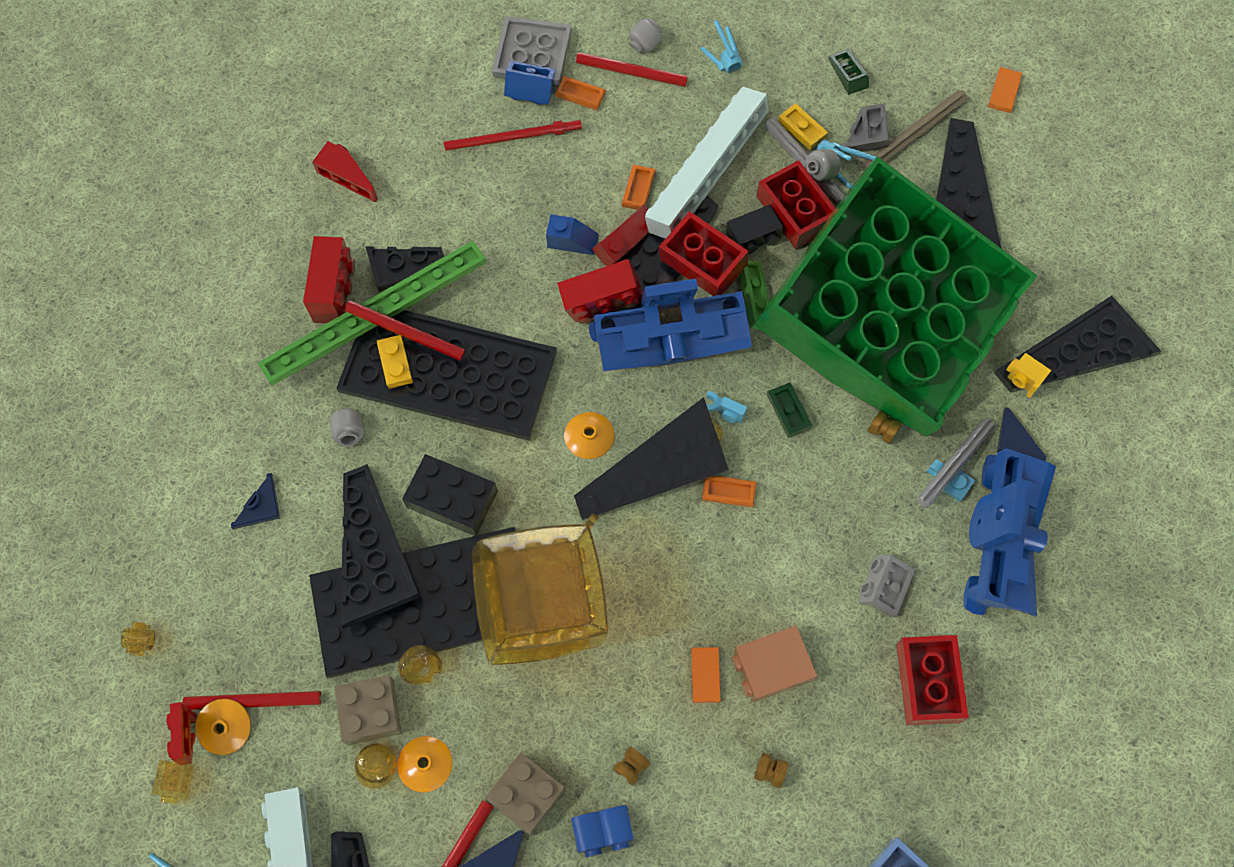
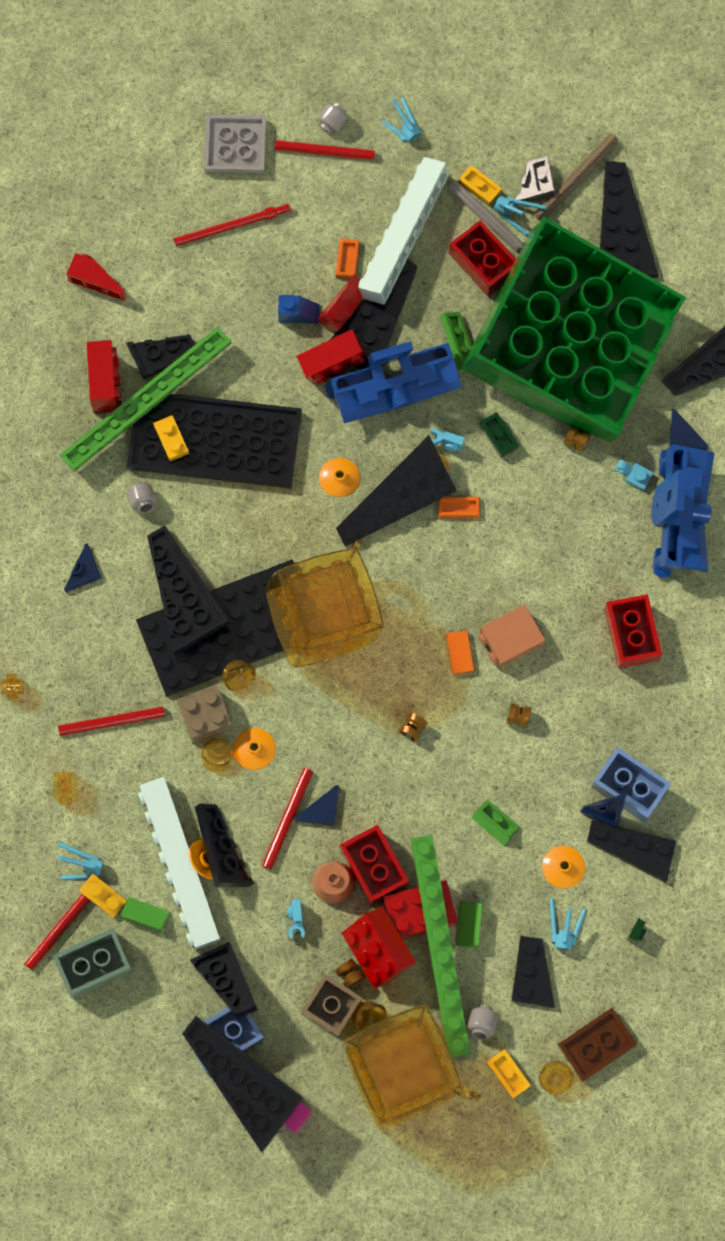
camera: 10 degrees left, 5 degrees up
(182, 740) = (63, 741): red wing -> none
(235, 722) = (93, 731): light orange dish -> none
(405, 330) = (176, 411): red piece -> none
(450, 495) = (237, 541): black brick -> none
(525, 794) = (336, 758): dark tan brick -> none
(529, 82) = (239, 176): blue brick -> none
(580, 93) = (283, 177): orange tile -> none
(602, 830) = (398, 775): blue brick -> none
(703, 254) = (412, 315): red brick -> none
(755, 229) = (450, 285): black brick -> none
(822, 164) = (501, 221): light grey head -> none
(854, 83) = (519, 138): dark green slope -> none
(886, 584) = (591, 564): light grey bracket -> none
(955, 463) = (636, 460): light grey axle -> none
(1005, 90) = (650, 128): orange tile -> none
(1027, 373) = (686, 380): yellow brick -> none

